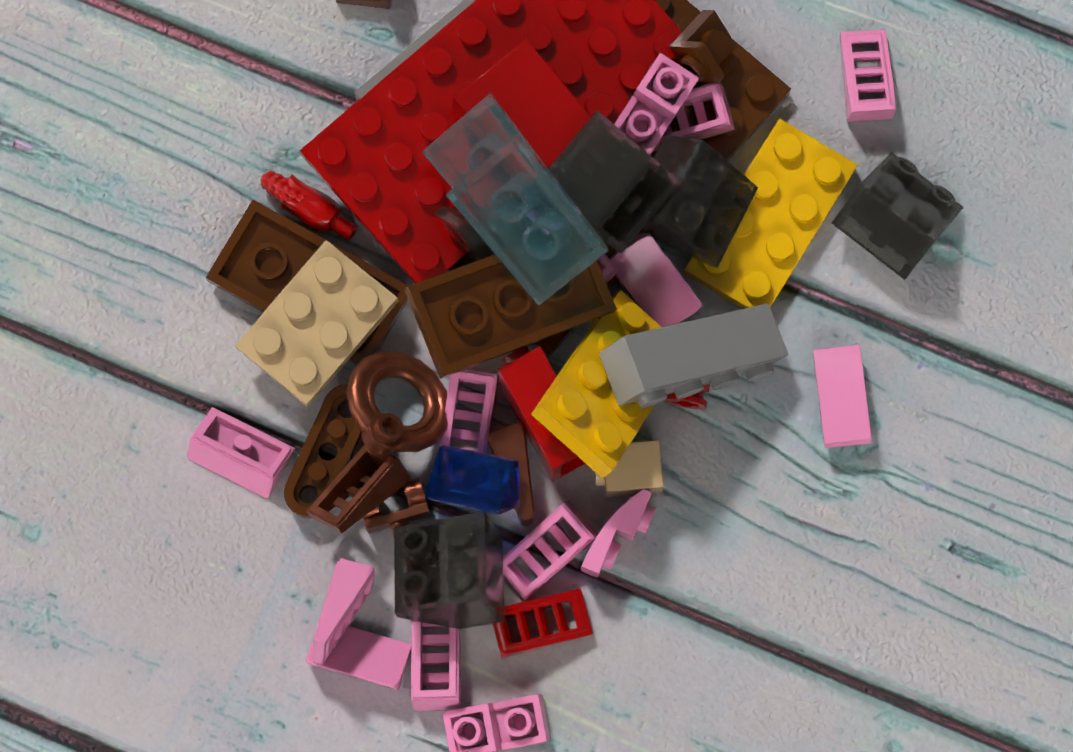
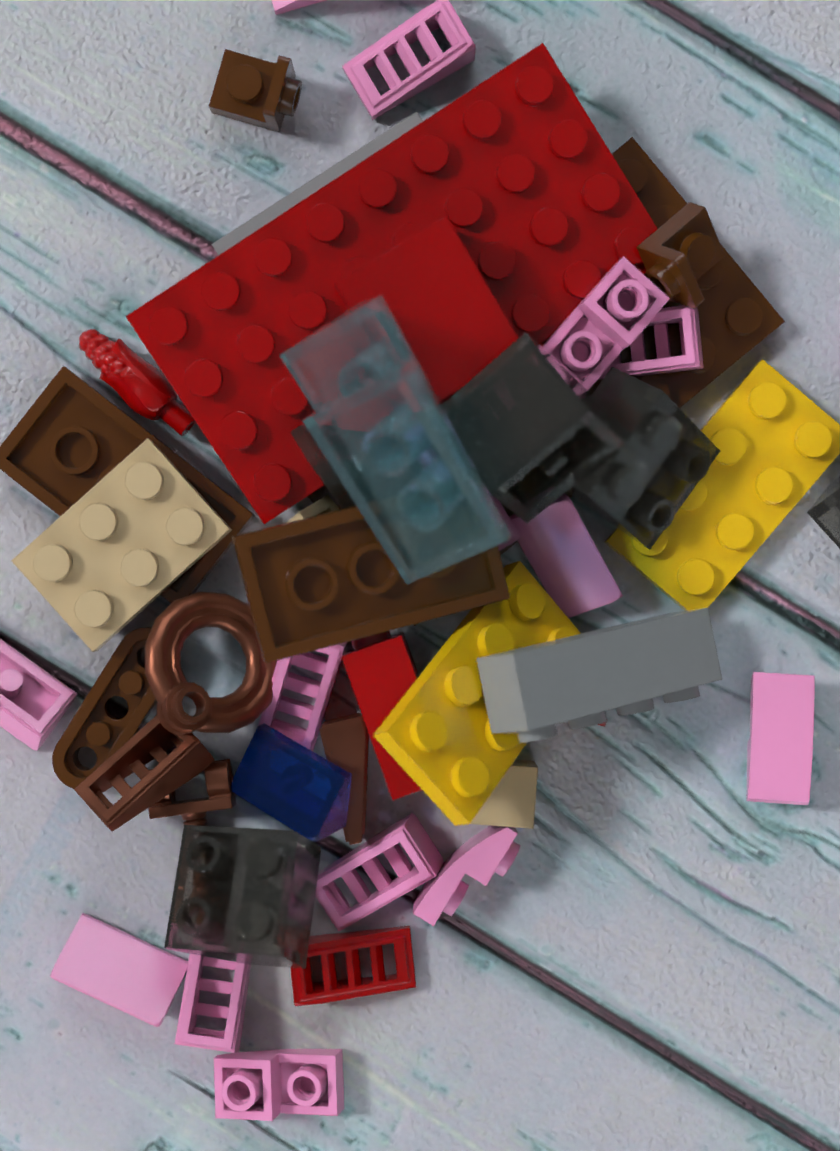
camera: 10 degrees right, 10 degrees up
(346, 594) = (109, 902): bright pink slope -> none

